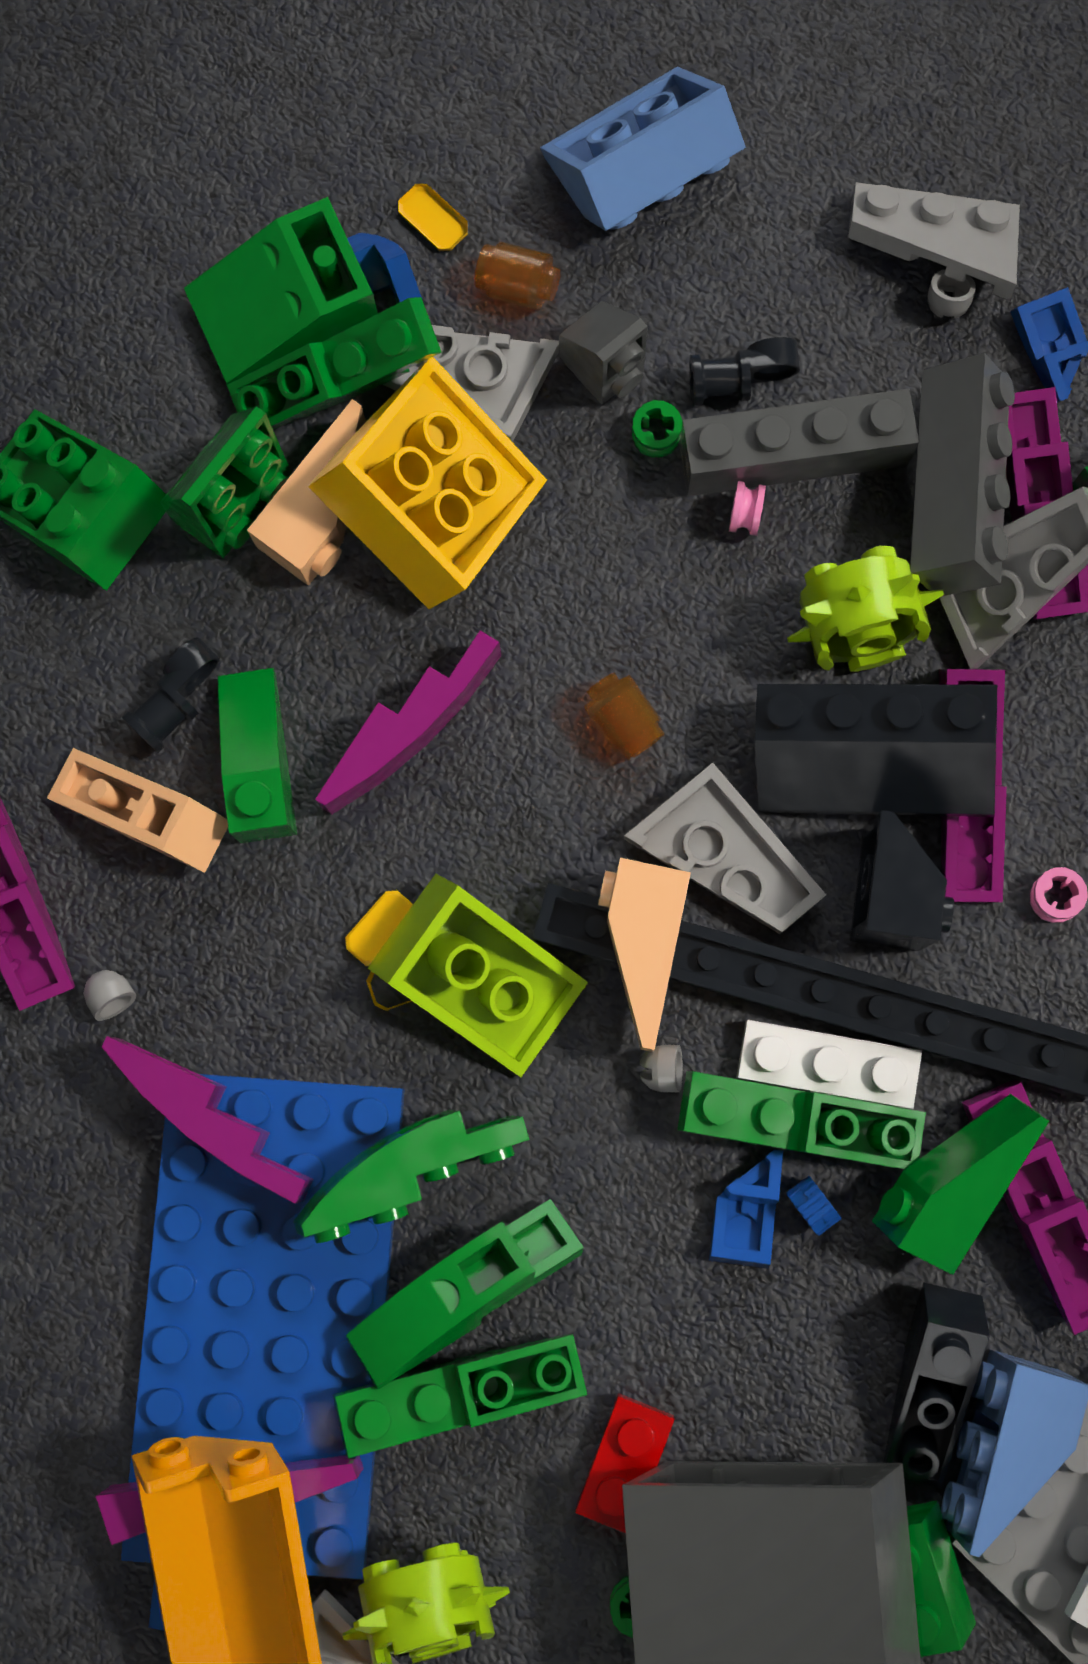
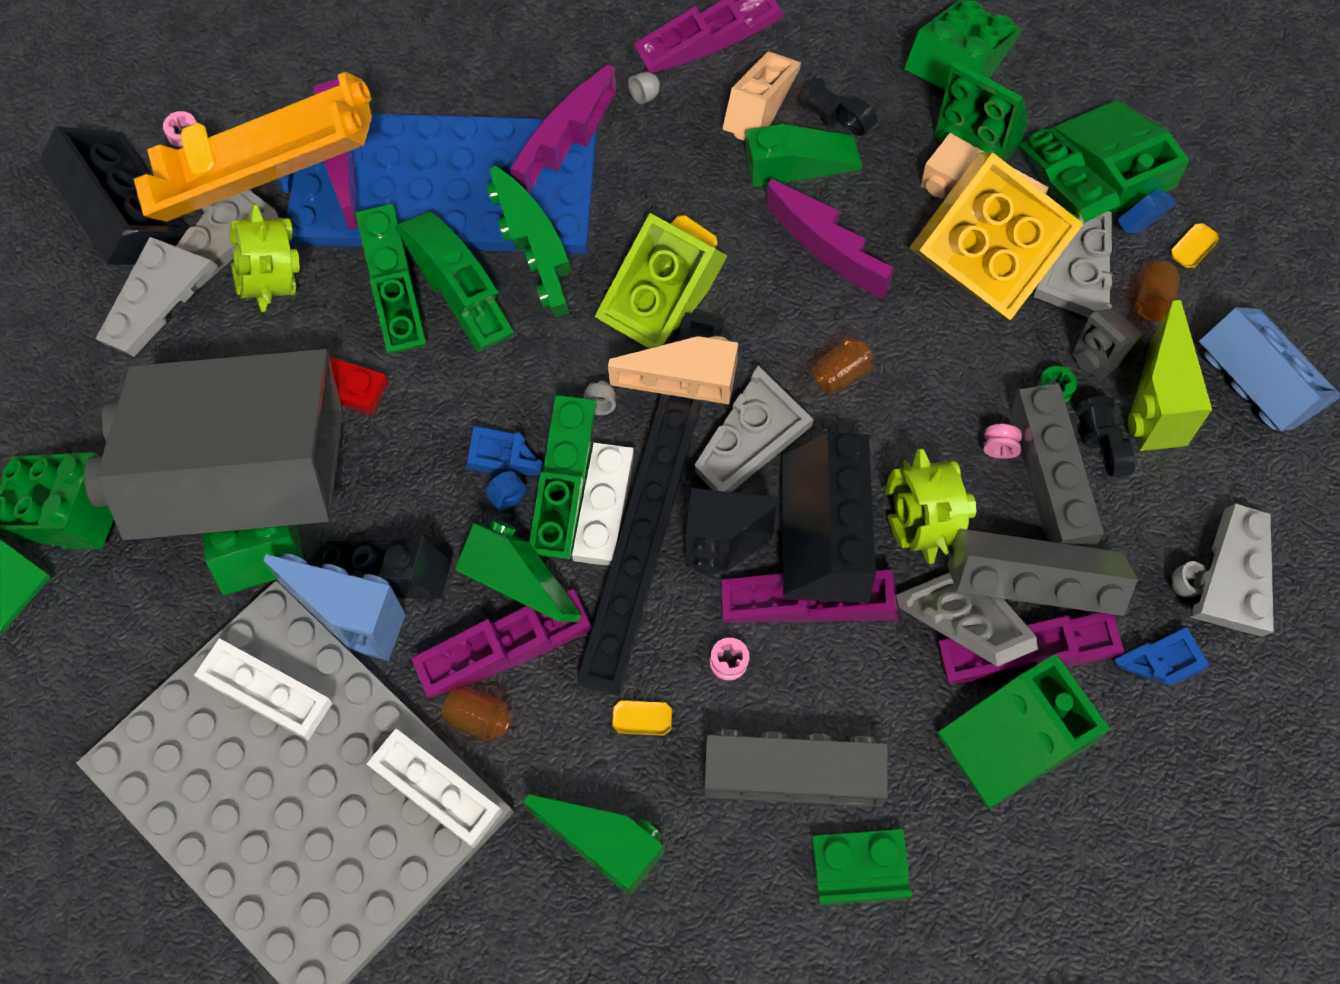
camera: 85 degrees right, 15 degrees down
(680, 279) = (1171, 389): none -> lime slope

